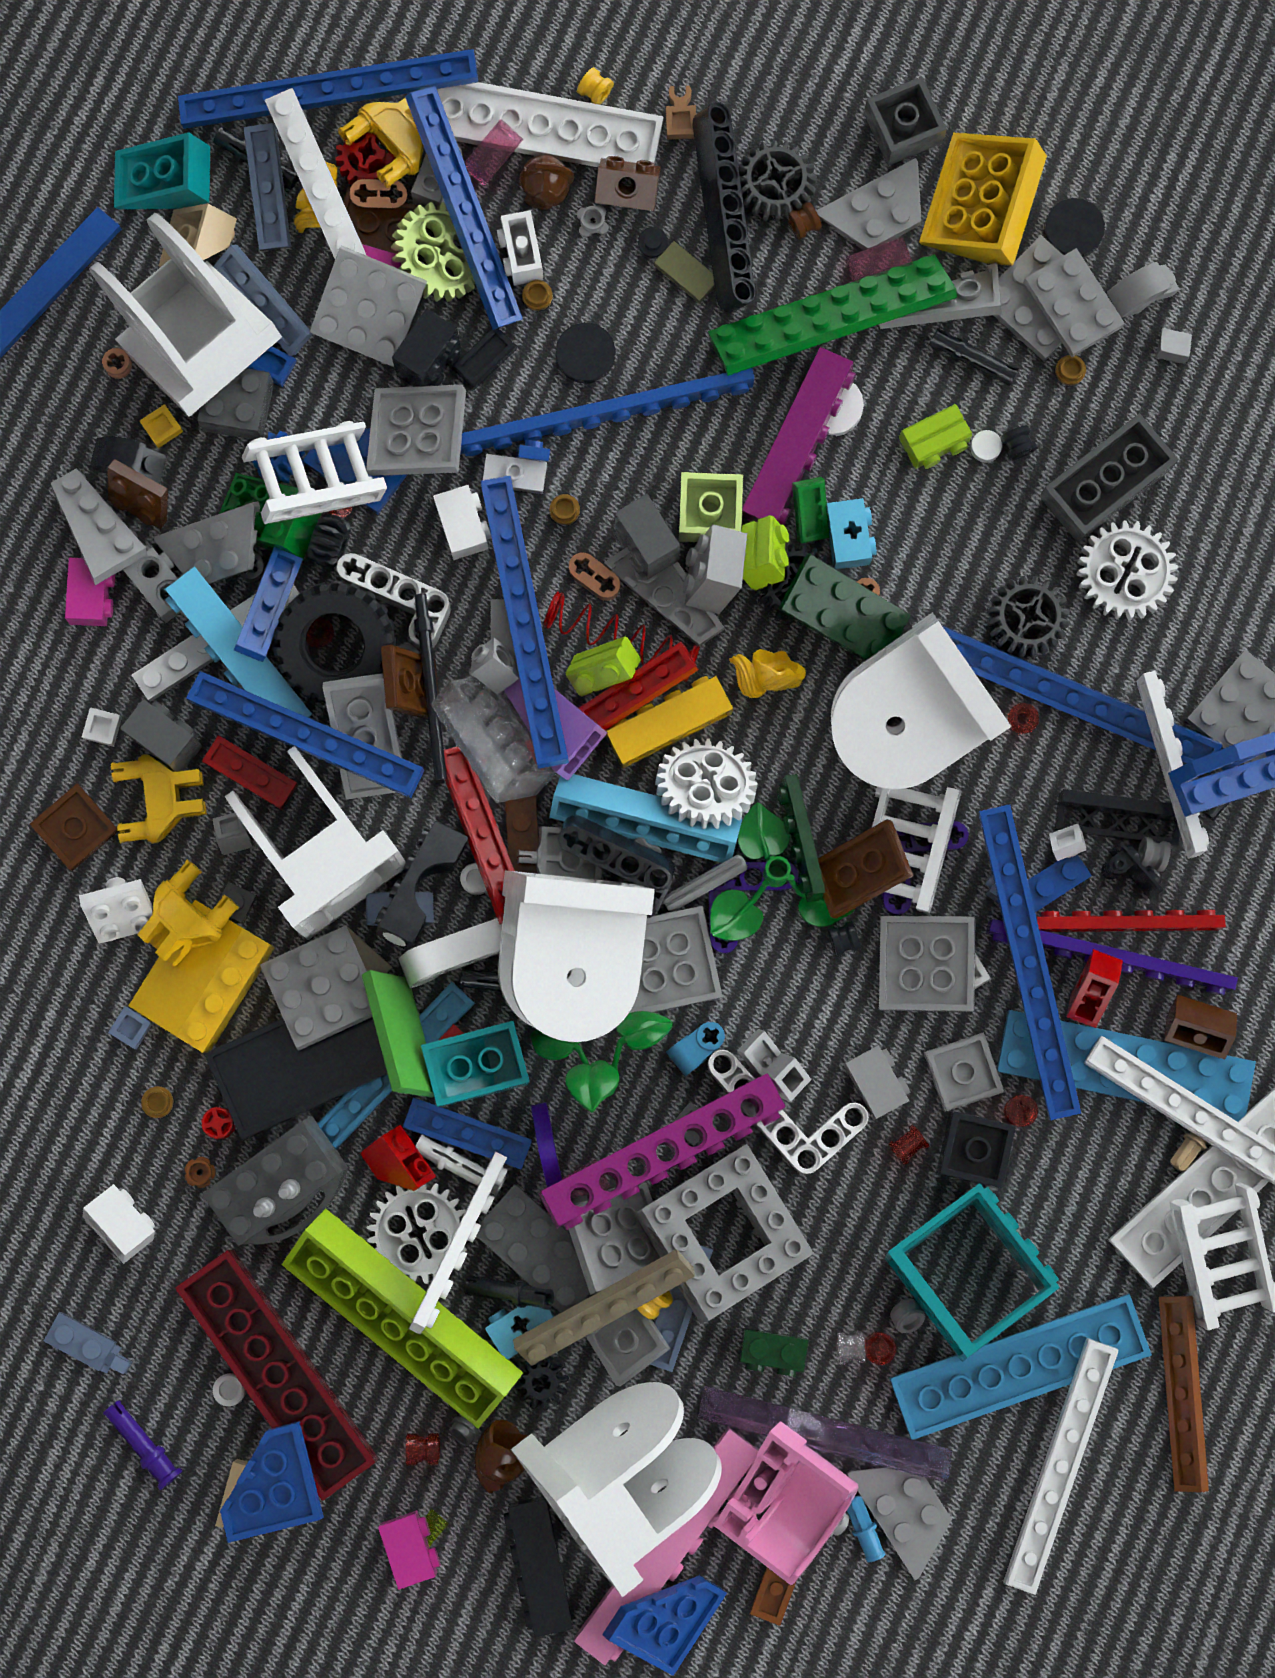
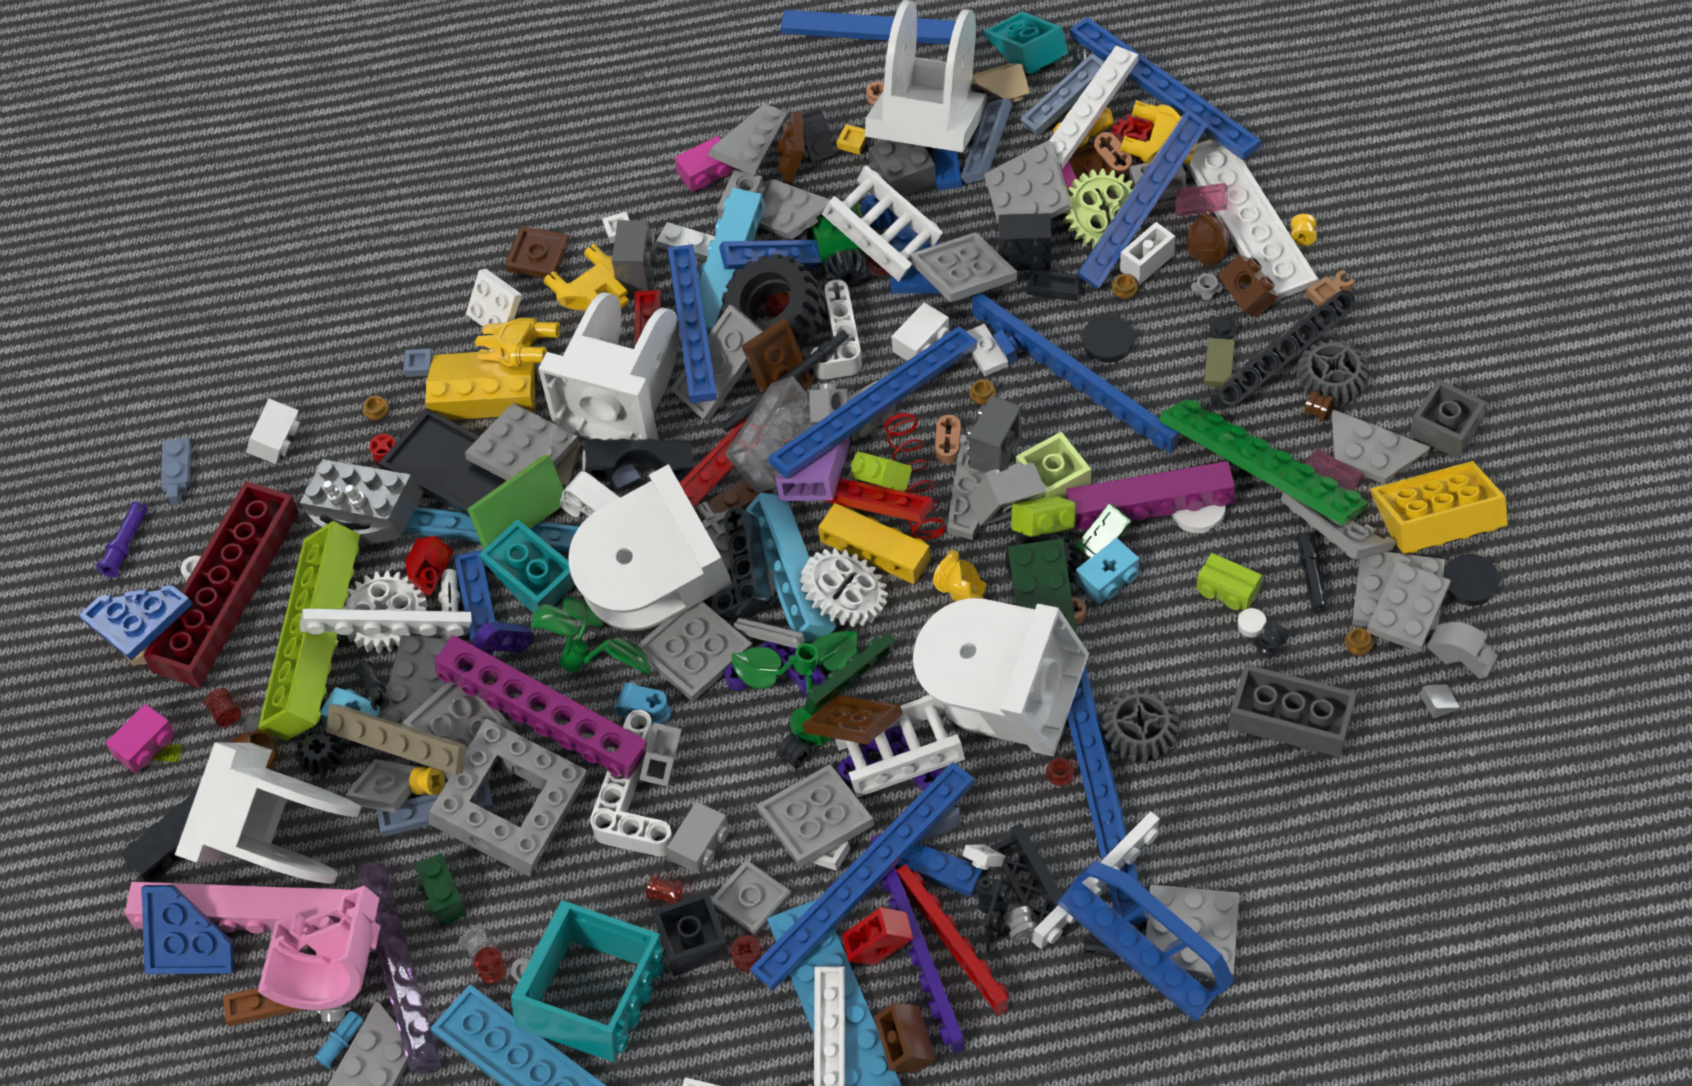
camera: 65 degrees right, 25 degrees down
(191, 1172) = (342, 454): dark orange plate -> none
(1150, 582) = (1237, 793): white gear -> none

